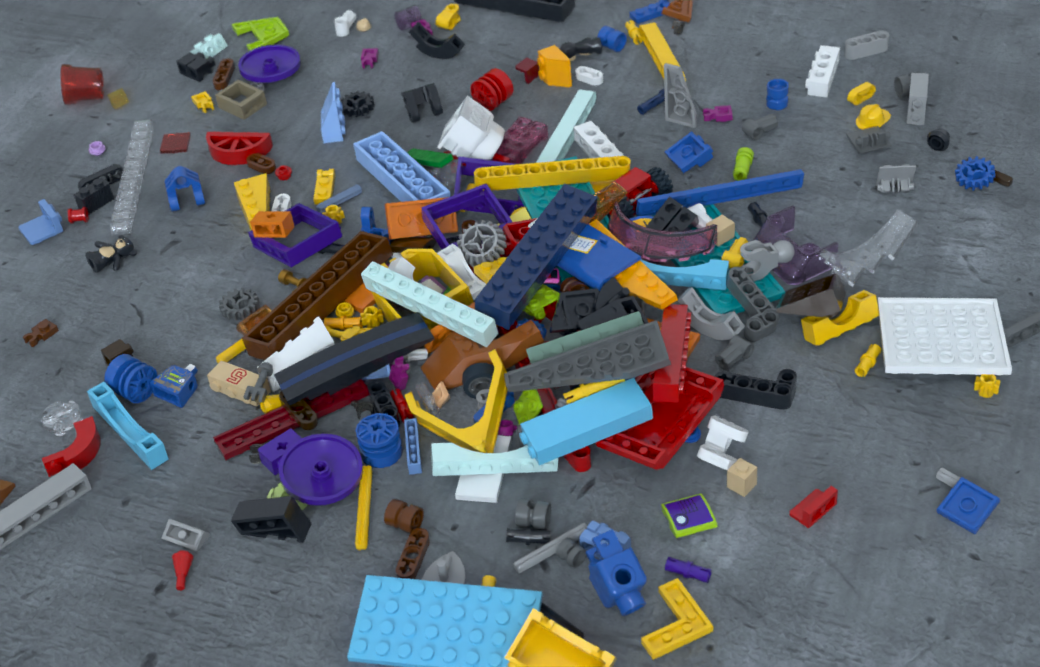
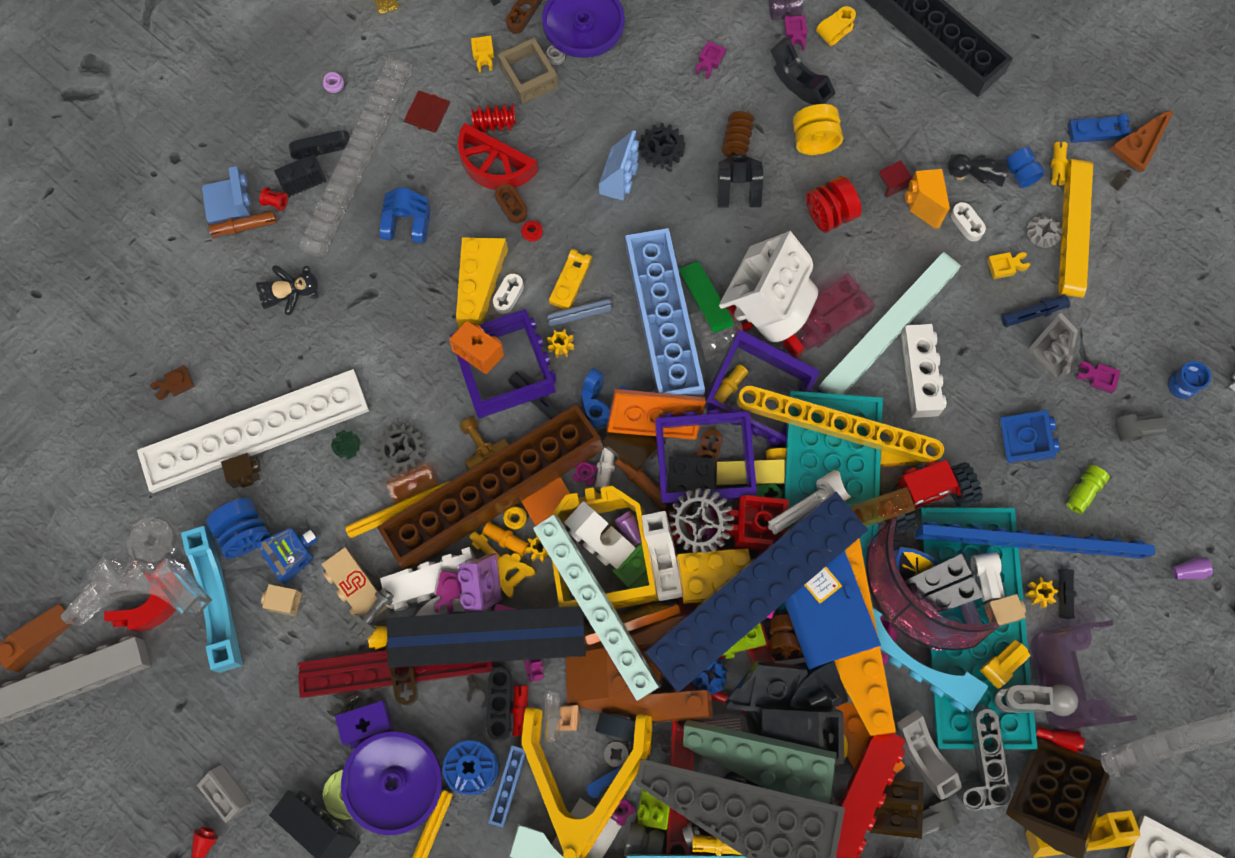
camera: 20 degrees right, 30 degrees up
(53, 238) = (233, 226): none -> dark orange pin
(64, 425) = (139, 577): none -> clear arch
(127, 326) = (252, 430): none -> white plate
(183, 410) = (281, 600): none -> tan brick
(195, 314) = (345, 444): none -> clear green gear
(229, 124) = (494, 118): none -> red piece
(311, 344) = (447, 588): none -> magenta plate
(331, 329) = (480, 583): none -> medium lavender plate
(407, 79) = (738, 134): none -> reddish brown piece
(461, 60) = (817, 129): none -> yellow wheel
(626, 85) = (1004, 265): none -> yellow plate
(648, 64) = (1035, 229): none -> light grey gear
(706, 349) = (901, 810): none -> dark brown slope
(742, 220) = (1045, 587): none -> yellow gear
(804, 279) = (1065, 738): none -> red cone
(836, 177) = (1193, 569): none -> medium lavender cone

